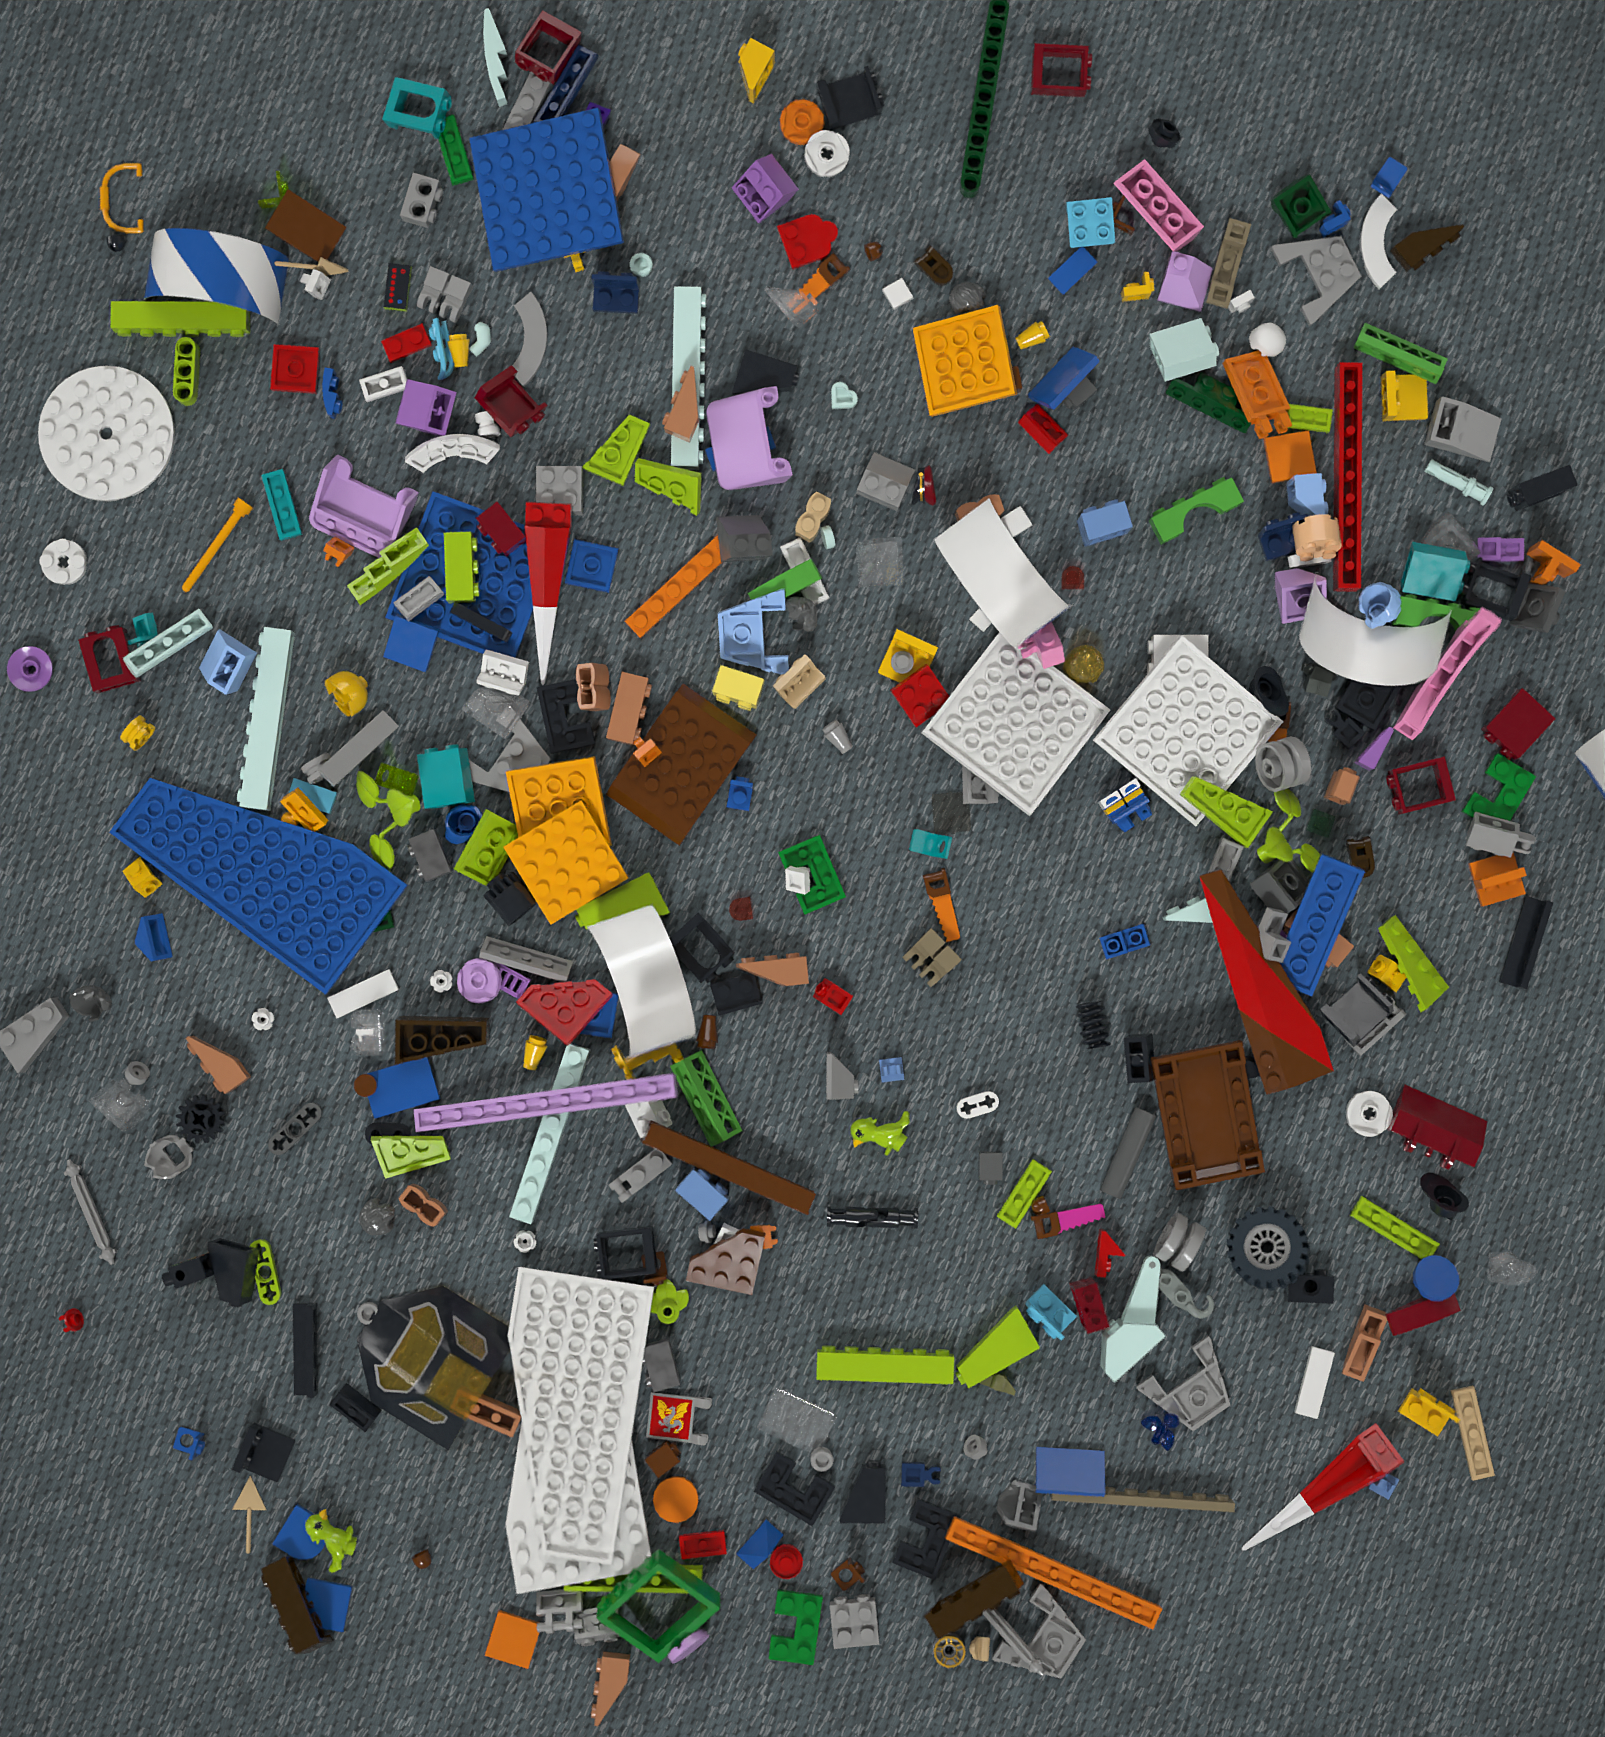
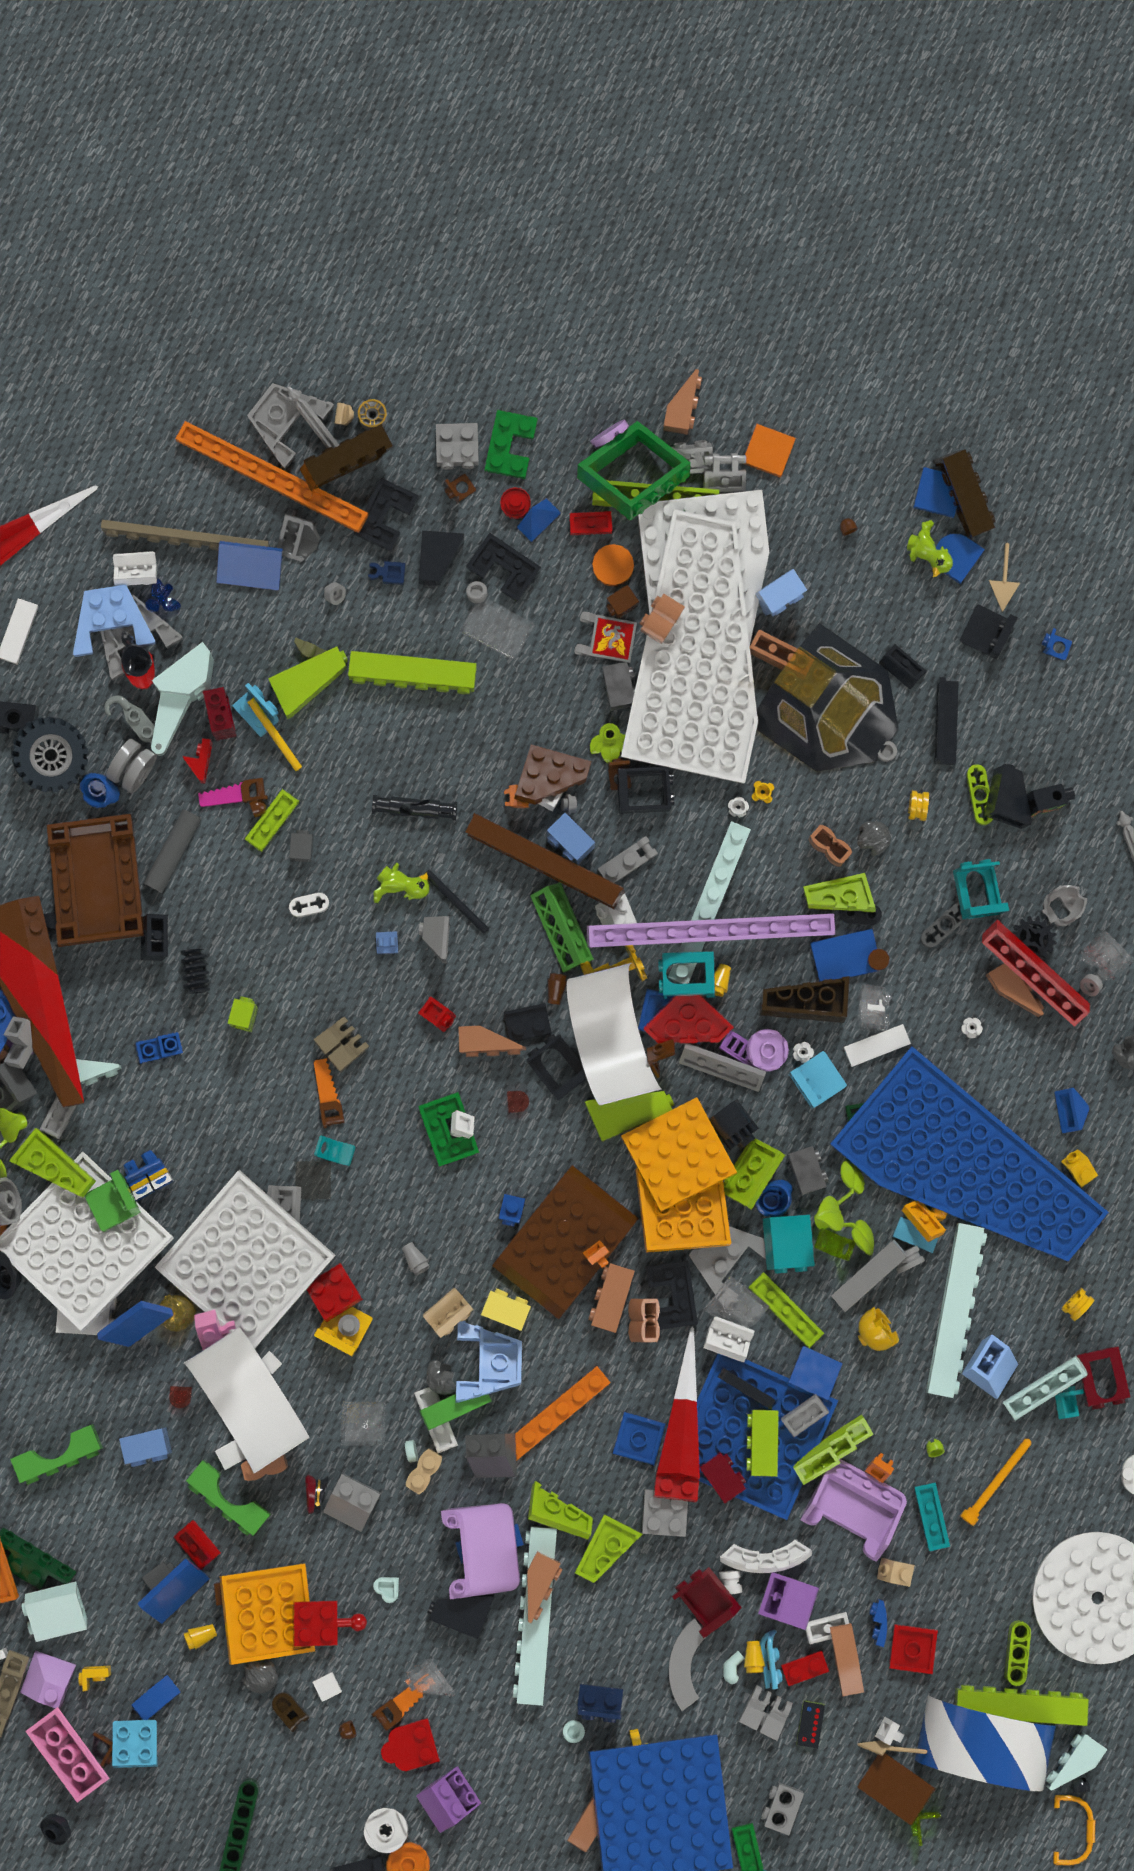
camera: 175 degrees left, 5 degrees down
(118, 267) = (1079, 1760): none -> light aqua slope
(195, 1080) = (1035, 973): none -> red brick
(252, 1186) = (987, 871): none -> teal panel
(282, 574) = (935, 1448): none -> lime hinge
(317, 445) = (895, 1572): none -> tan bracket
(330, 1255) = (918, 805): none -> yellow wheel
(362, 352) = (846, 1659): none -> nougat slope
(424, 952) = (817, 1079): none -> medium azure bracket
(445, 708) = (786, 1310): none -> lime tile
(491, 1479) = (780, 592): none -> light blue slope
(495, 1264) = (757, 795): none -> yellow plate
(583, 1036) = (672, 989): none -> teal panel
(593, 969) = (659, 1052): none -> reddish brown bracket
(616, 1441) = (662, 618): none -> nougat brick
(820, 1118) = (456, 902): none -> black piece
(911, 355) = (317, 1623): none -> red plate
(991, 460) = (206, 1481): none -> bright green arch
(1029, 1288) = (274, 734): none -> yellow bar
(1038, 981) = (243, 1014): none -> lime piece
(1126, 647) = (135, 1323): none -> blue tile
(1160, 772) = (112, 1202): none -> bright green bracket
(1182, 1354) = (137, 663): none -> black hair
(1193, 1459) = (135, 568): none -> white bracket
(1212, 1213) = (99, 790): none -> blue hair
(1220, 1411) = (109, 610): none -> light blue wing

